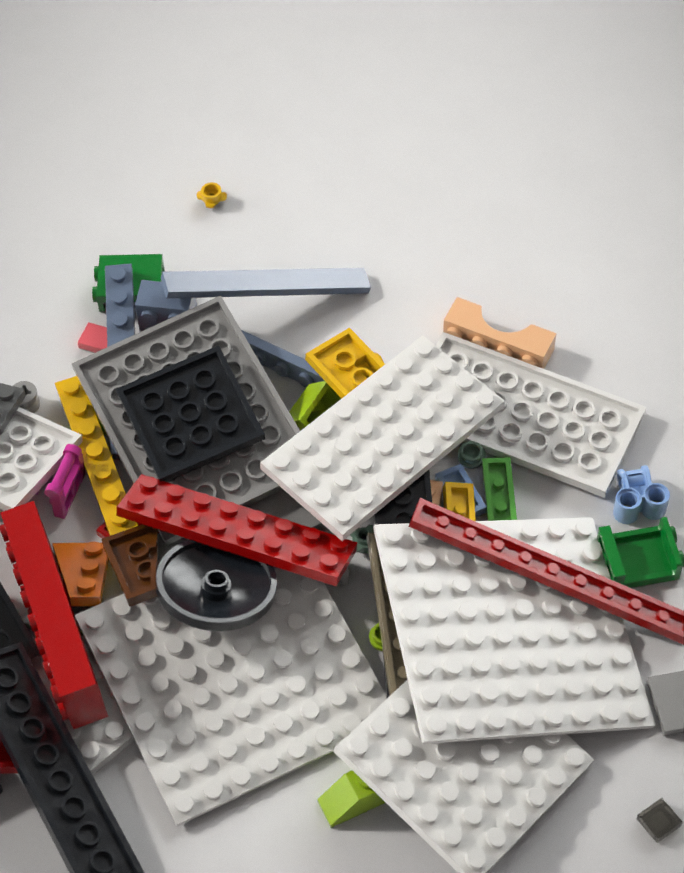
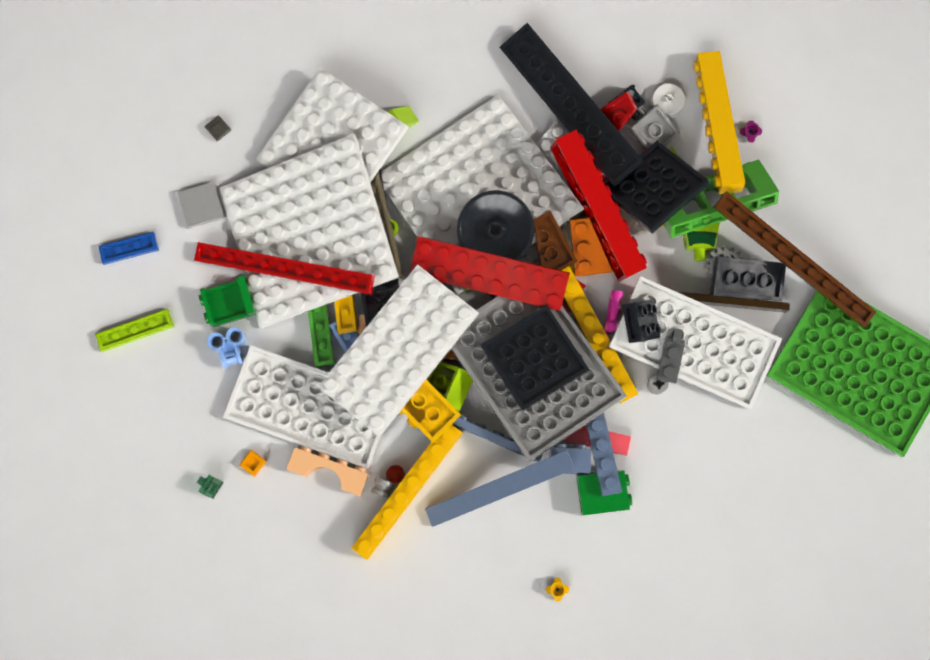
camera: 175 degrees right, 25 degrees up
(27, 446) = (641, 321): none -> black bracket
(398, 325) = (395, 474): none -> clear red plate
(407, 289) = (406, 493): none -> yellow brick
(426, 311) = (382, 487): none -> light grey wheel
(604, 358) = (253, 463): none -> light orange tile
(665, 333) = (209, 485): none -> clear green tile

